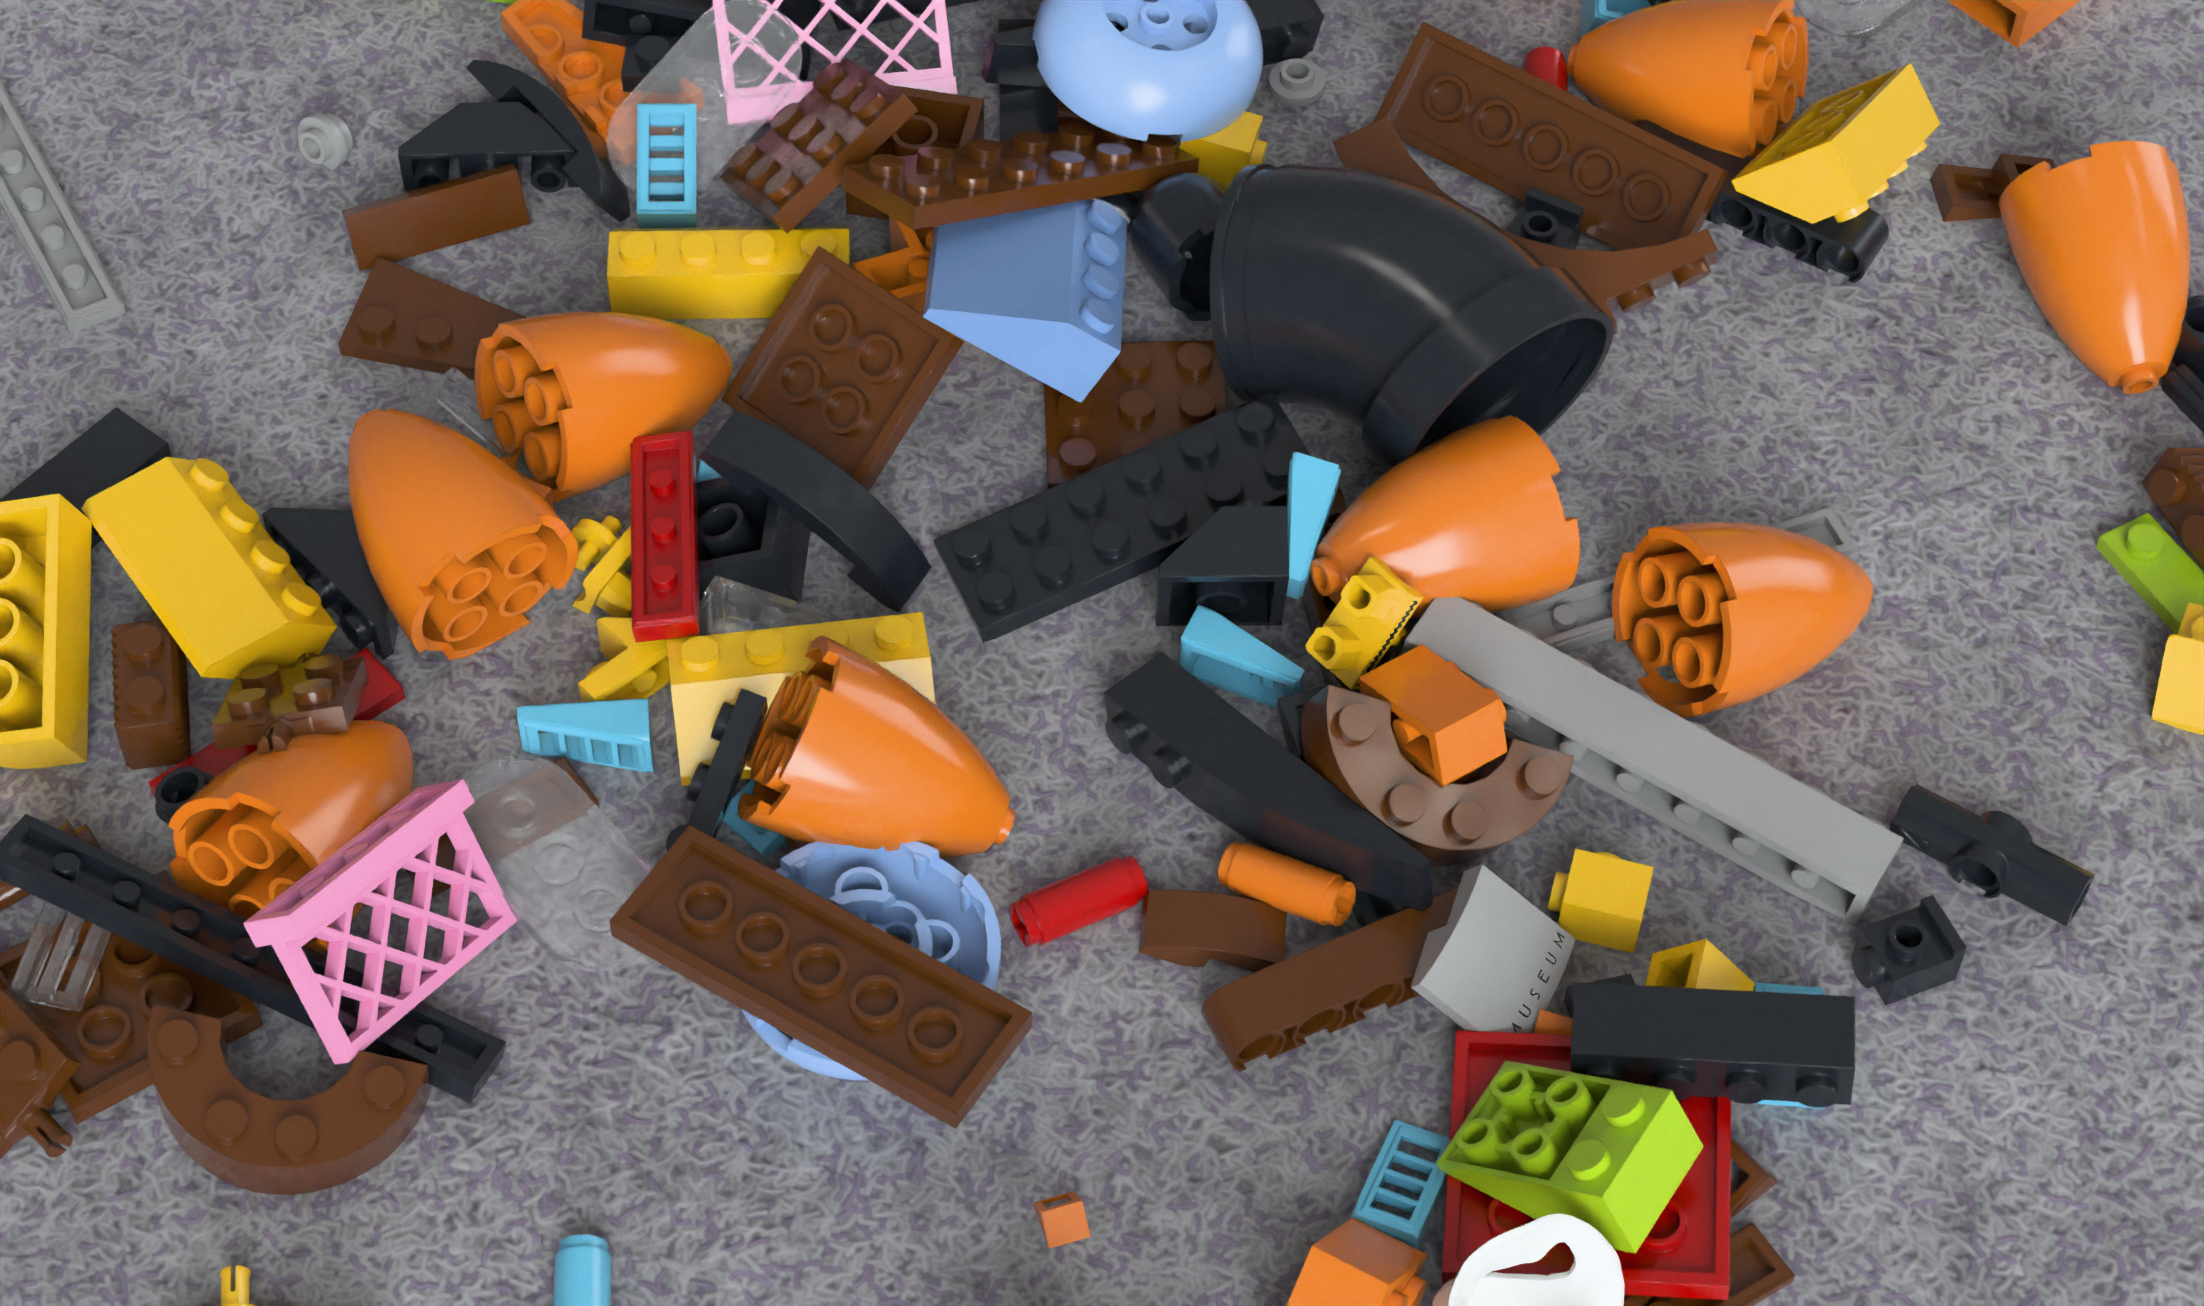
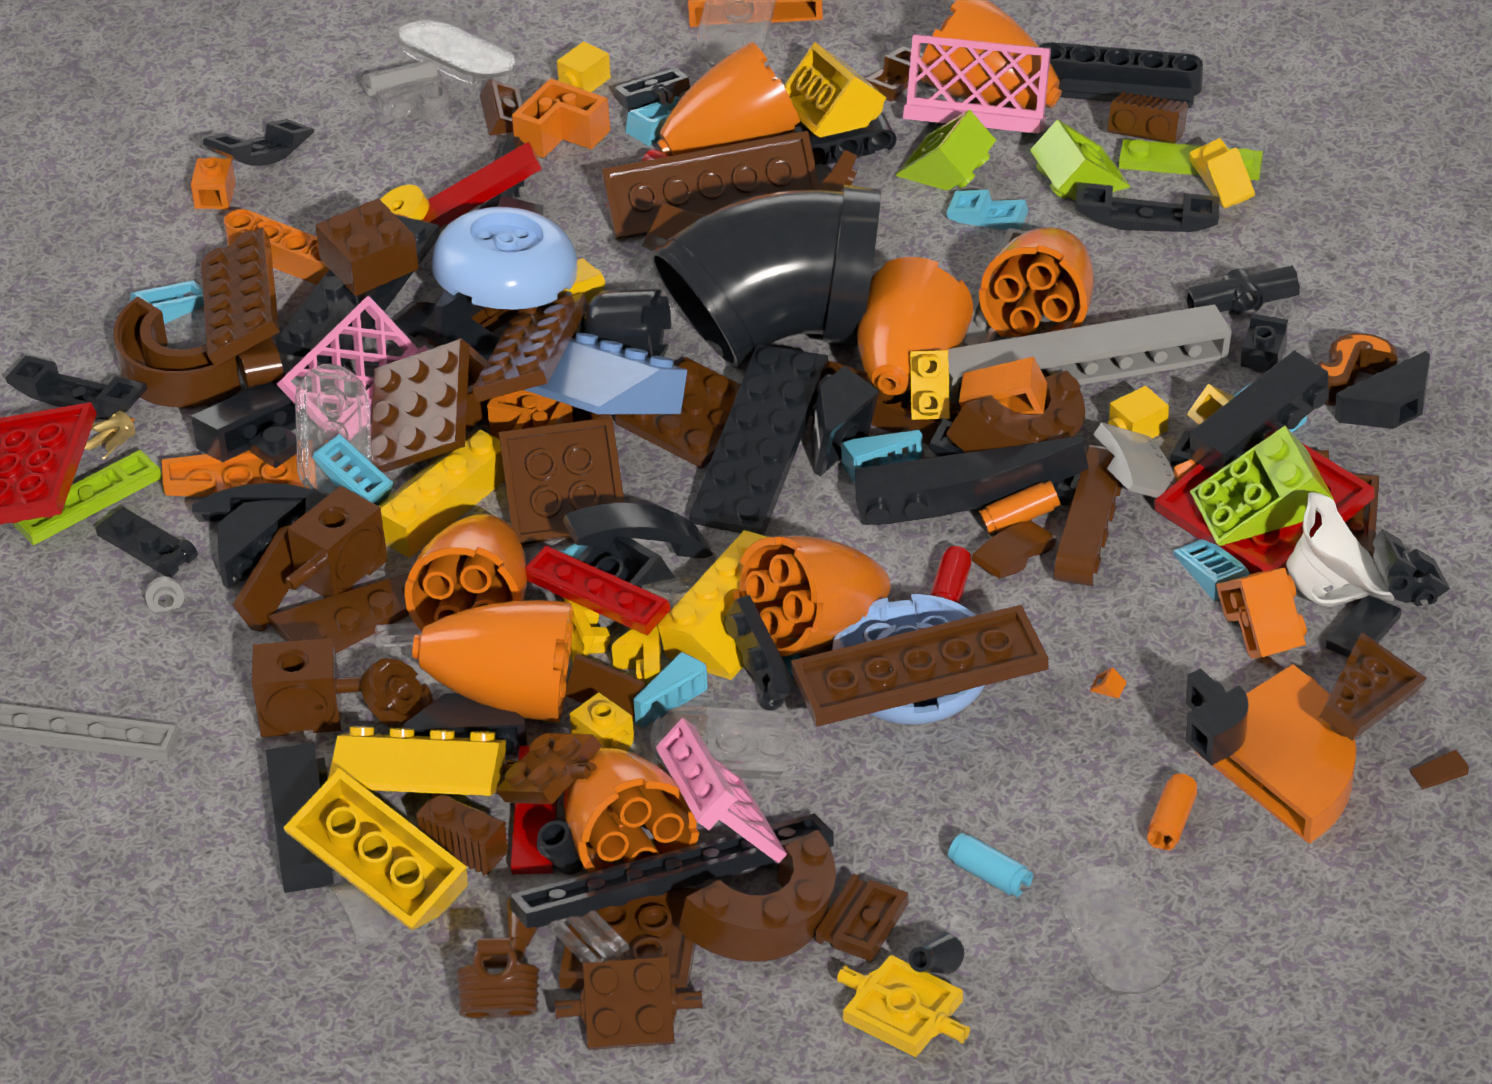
camera: 45 degrees left, 10 degrees down
(246, 364) = (298, 687): none -> reddish brown piece
(311, 459) = (394, 692): none -> reddish brown tile
(360, 1225) = (862, 917): none -> reddish brown plate
(405, 65) = (146, 542): none -> black plate
(462, 710) = (605, 721): none -> yellow brick
(520, 233) = (336, 544): none -> reddish brown piece
(537, 656) = (592, 677): none -> reddish brown slope
(1309, 503) = (841, 352): medium azure slope -> none
(1837, 458) = (978, 209): none -> medium azure slope
(1894, 349) = (950, 154): none -> lime slope
(1966, 1178) = (1386, 397): none -> black slope
(1975, 1076) = (1353, 355): none -> reddish brown animal
(1983, 585) = (1192, 215): none -> black slope
(2009, 326) = (990, 115): none -> bright pink fence
(2034, 497) = (1073, 158): none -> lime slope

